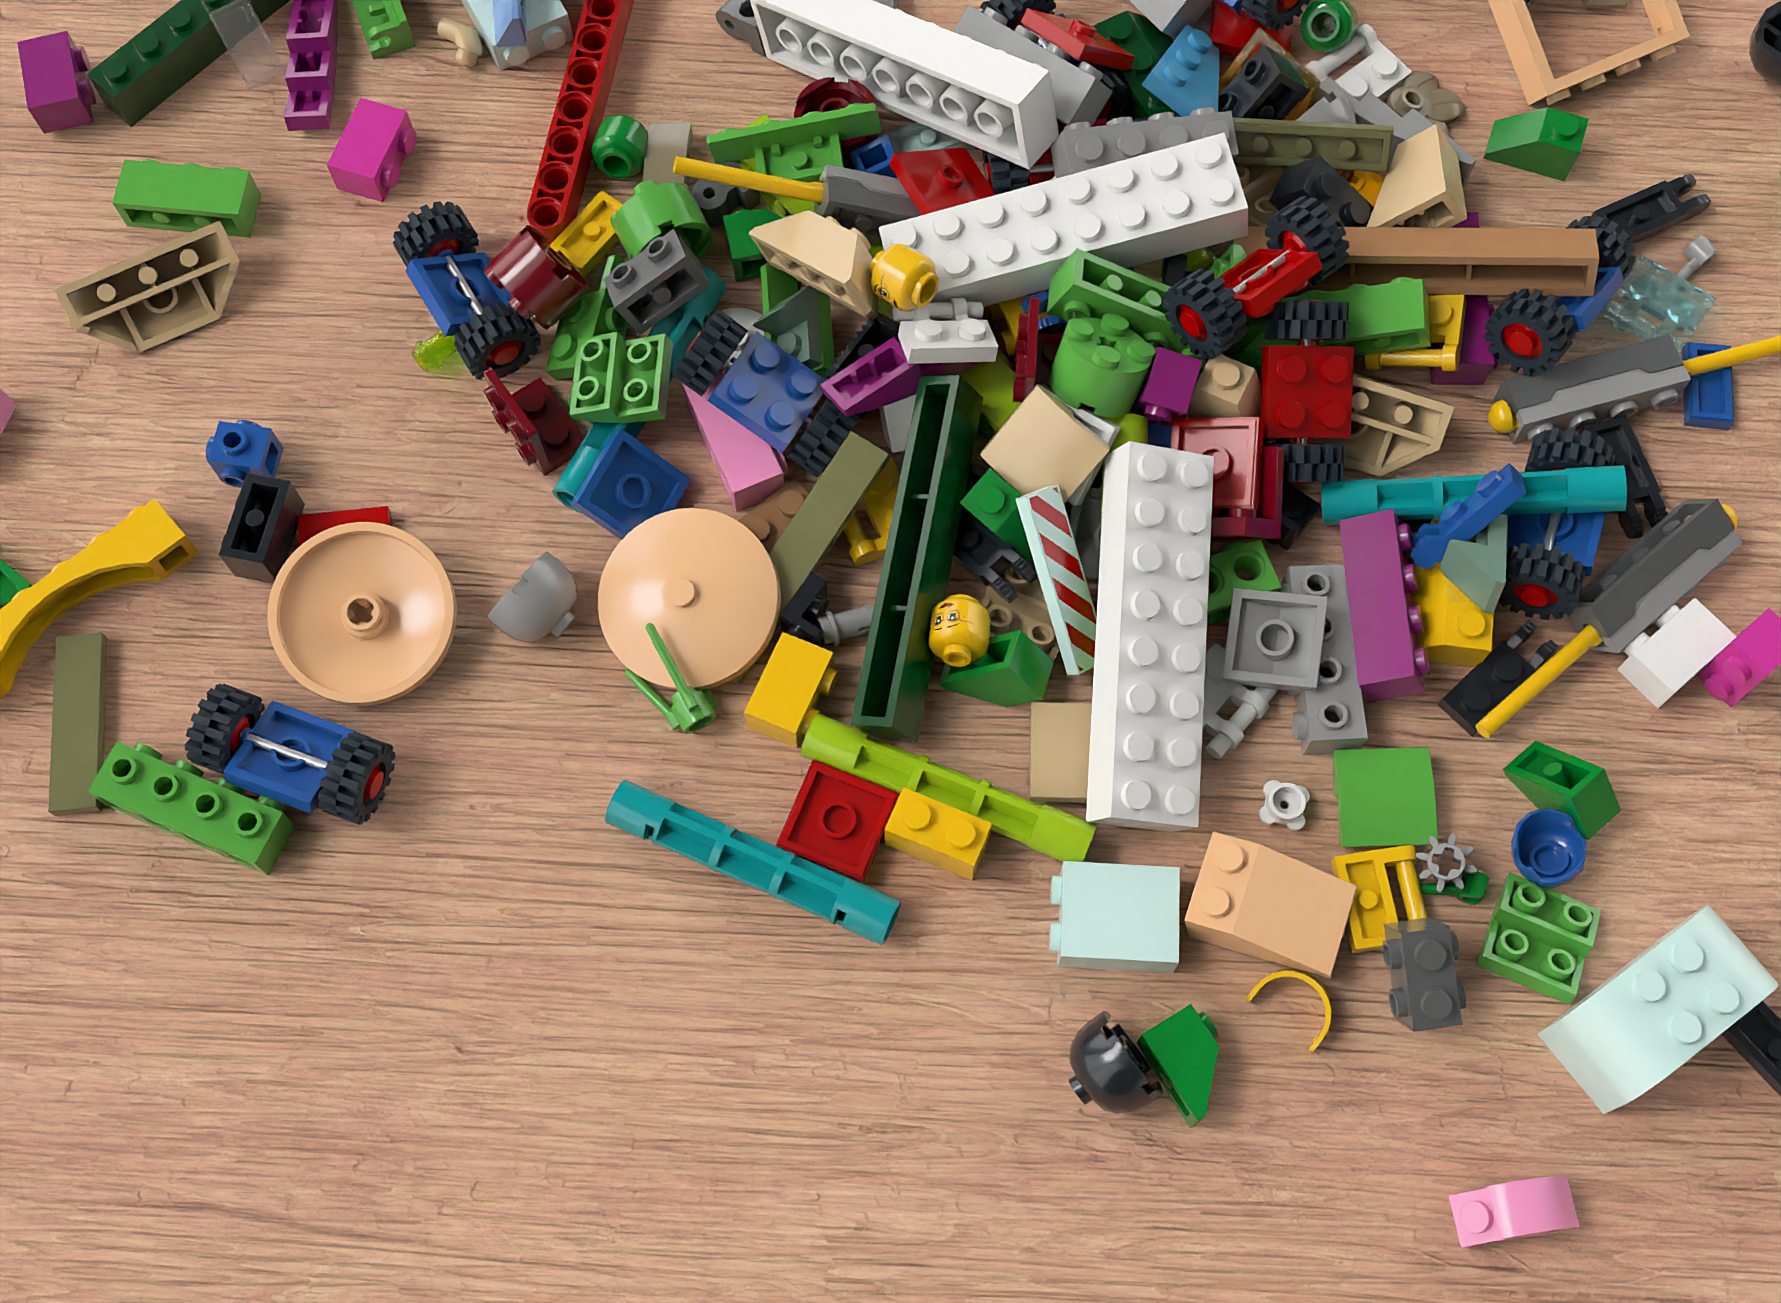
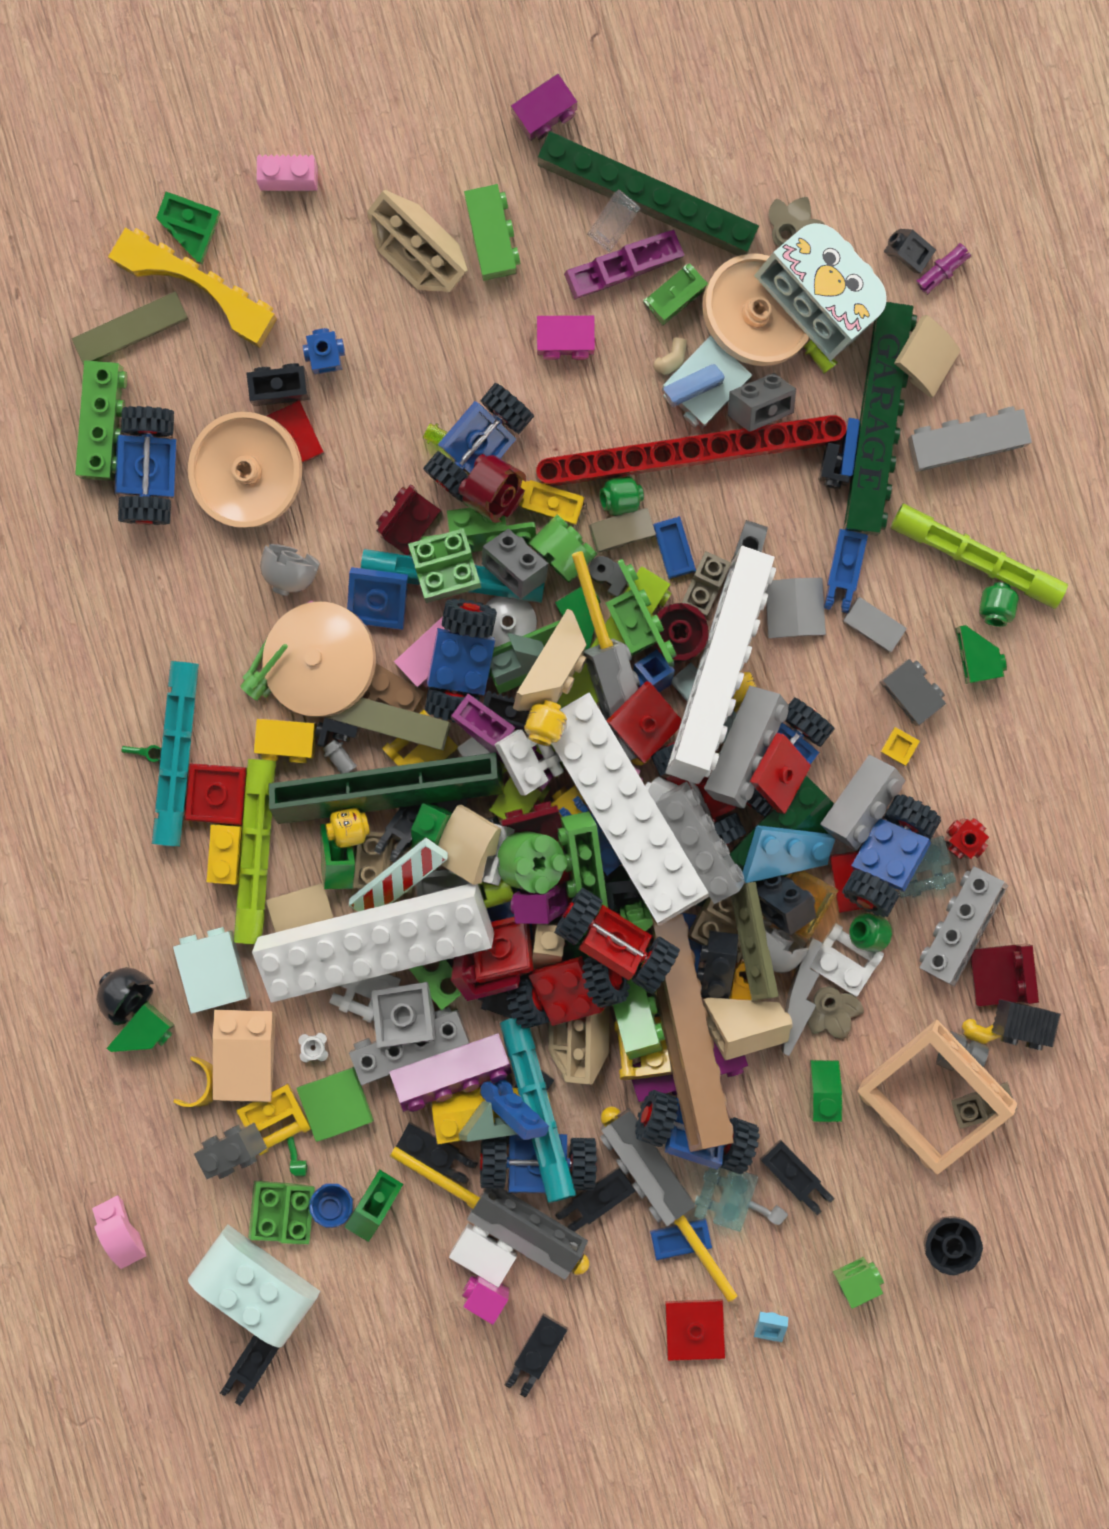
camera: 75 degrees right, 20 degrees up
(716, 110) = (674, 547): none -> blue tile
(731, 915) = (140, 751): none -> green hand
(773, 83) = (706, 582): none -> dark tan slope
(1438, 851) = (307, 1155): light grey gear -> none

